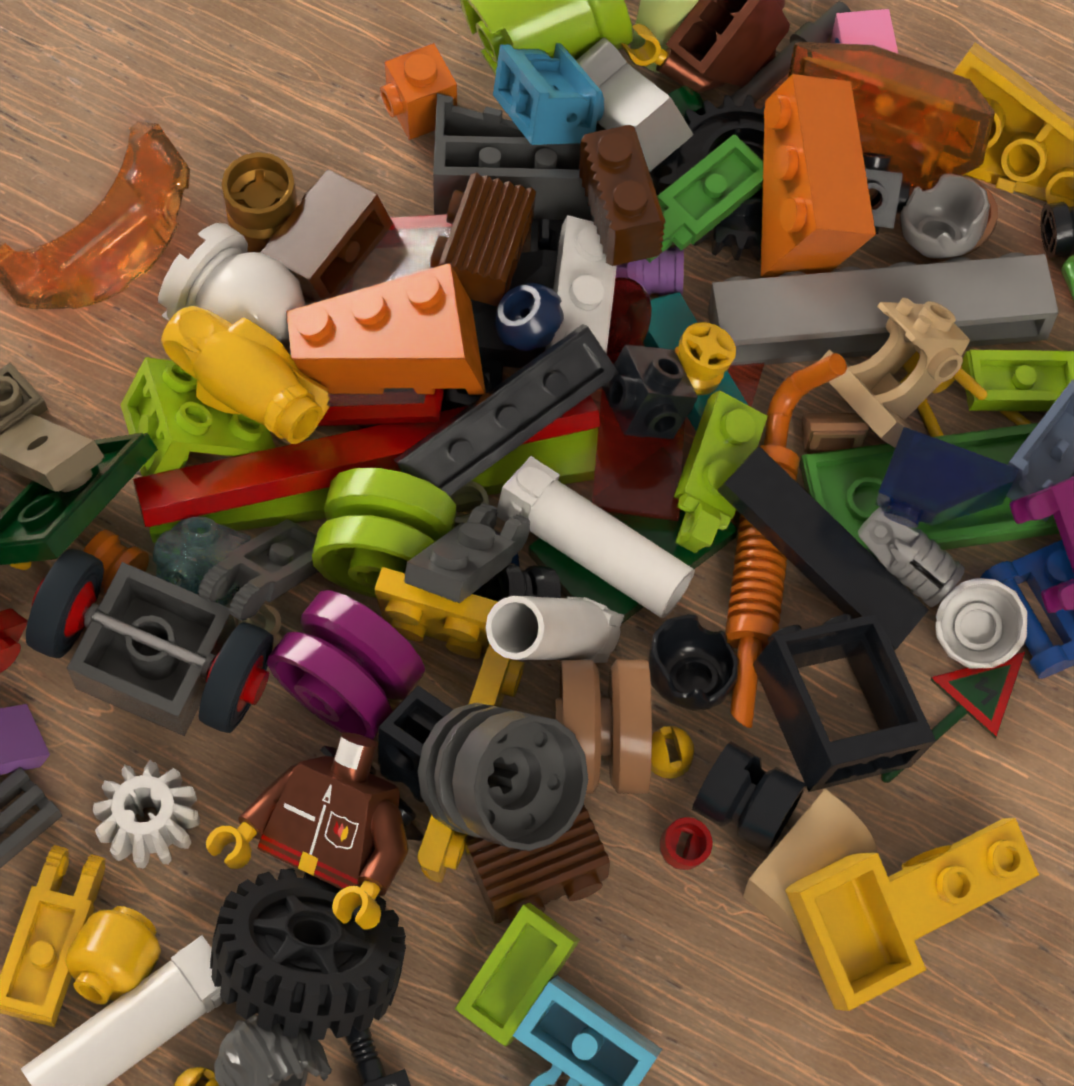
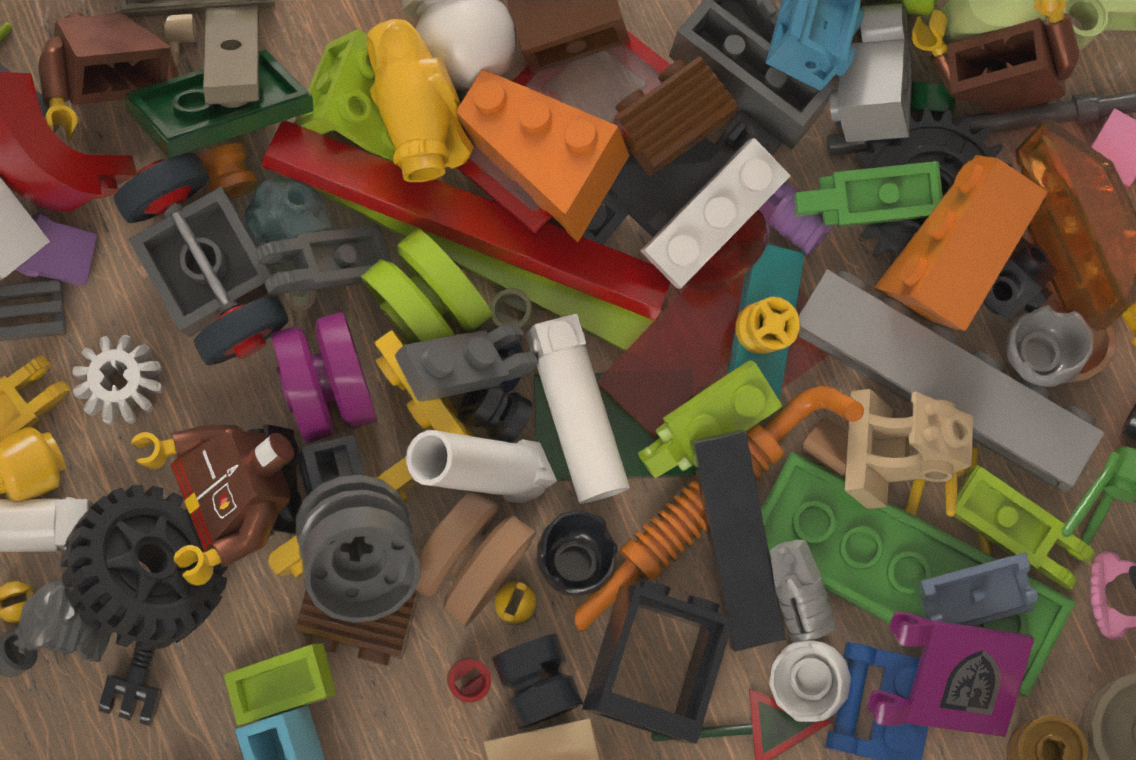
camera: 40 degrees right, 15 degrees up
(510, 412) = (581, 270): black tile -> none
(528, 316) = (665, 214): dark blue plate -> none
(621, 195) = (795, 158): reddish brown brick -> none
(650, 392) = (703, 326): black brick -> none
(940, 481) = (852, 557): clear blue slope -> none

